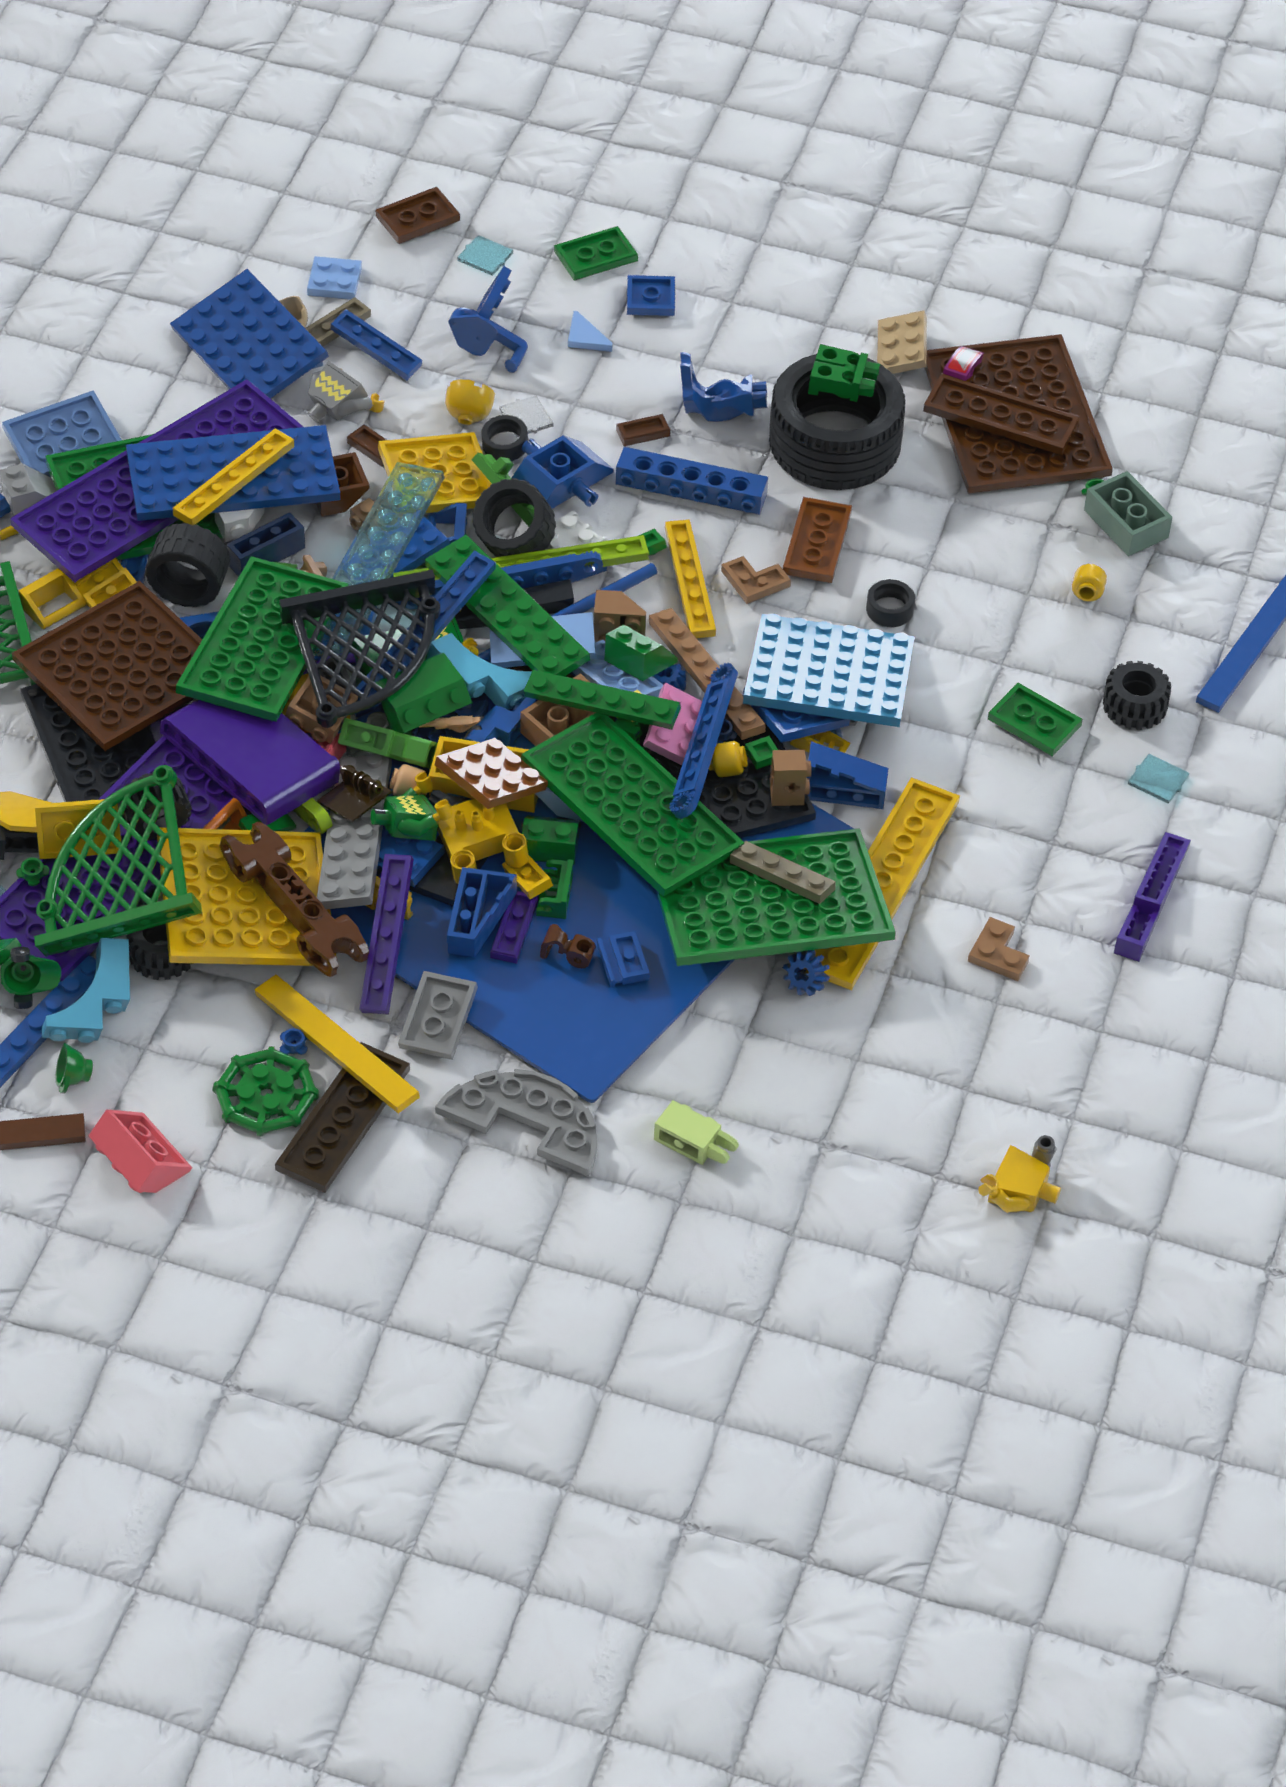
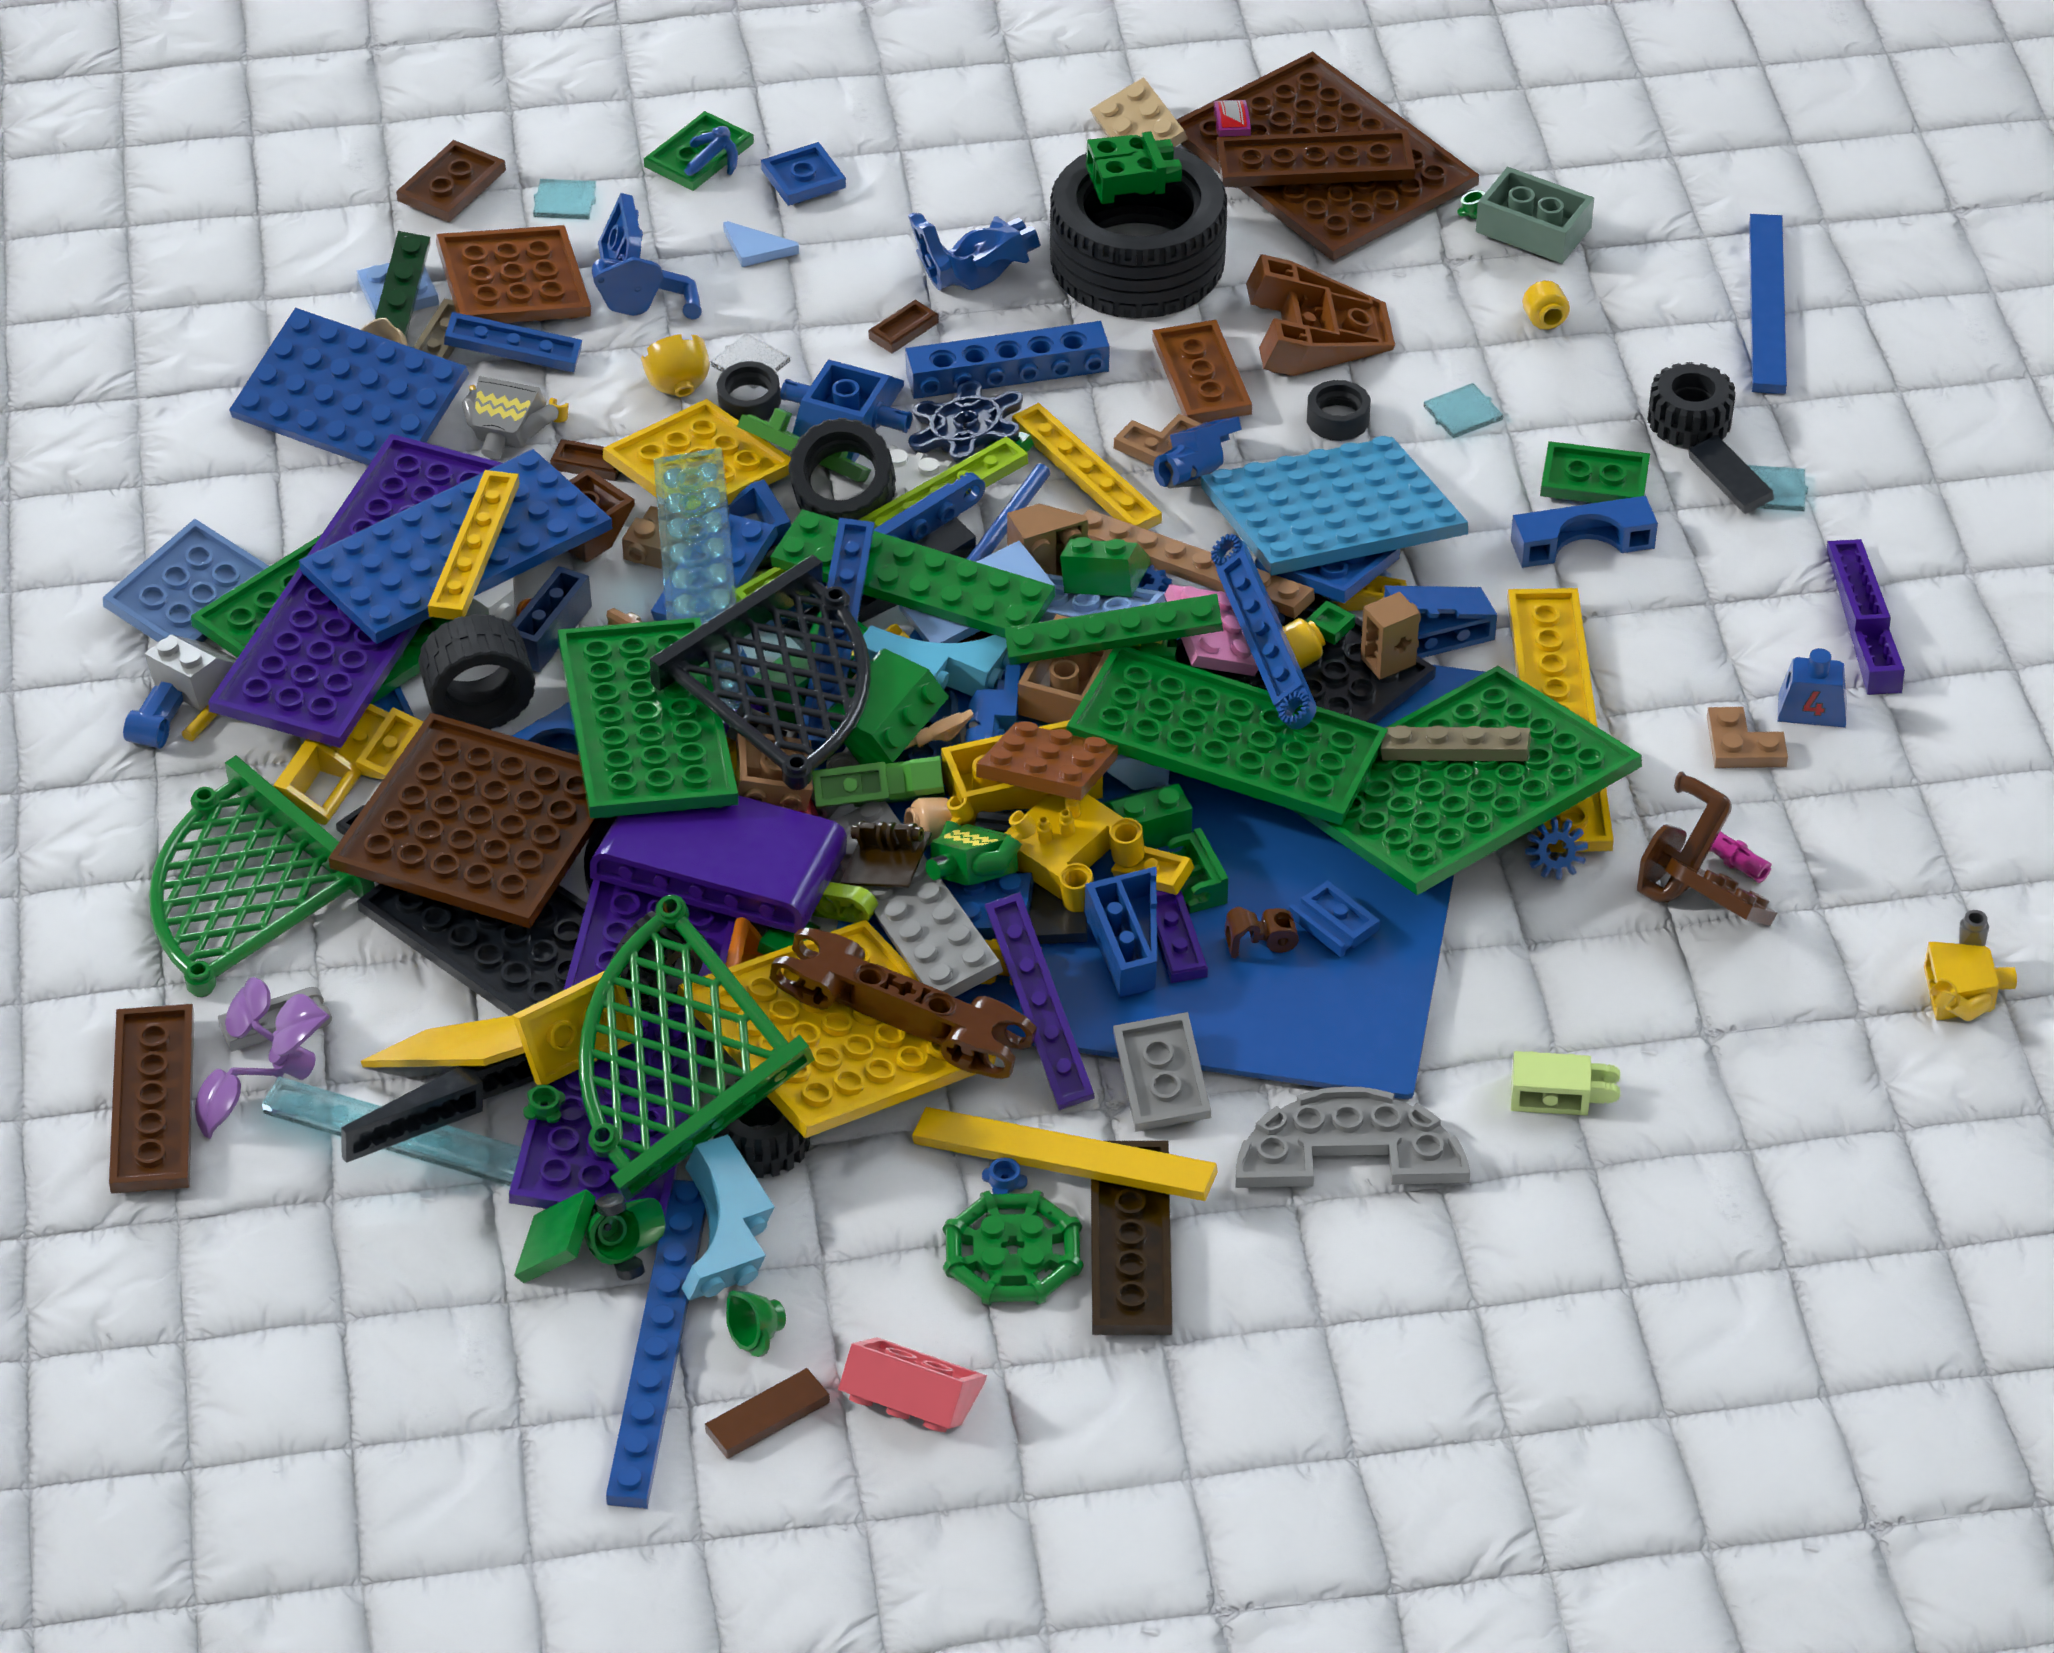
camera: 25 degrees left, 5 degrees down
(331, 277) = (403, 279): none -> dark green plate
(409, 297) = (514, 274): none -> dark orange plate
(607, 250) = (718, 139): none -> blue piece
(631, 514) = (948, 419): none -> dark blue plate
(765, 596) = (1194, 453): none -> blue plate
(879, 1012) = (1665, 856): none -> reddish brown plate
(930, 536) = (1320, 320): none -> dark orange wedge
(931, 1028) = (1737, 855): none -> dark pink pin
(967, 747) = (1621, 523): none -> blue arch
(980, 636) = (1463, 410): none -> clear light blue piece
(1068, 937) = (1814, 691): none -> blue torso
(1131, 756) = (1731, 474): none -> black tile

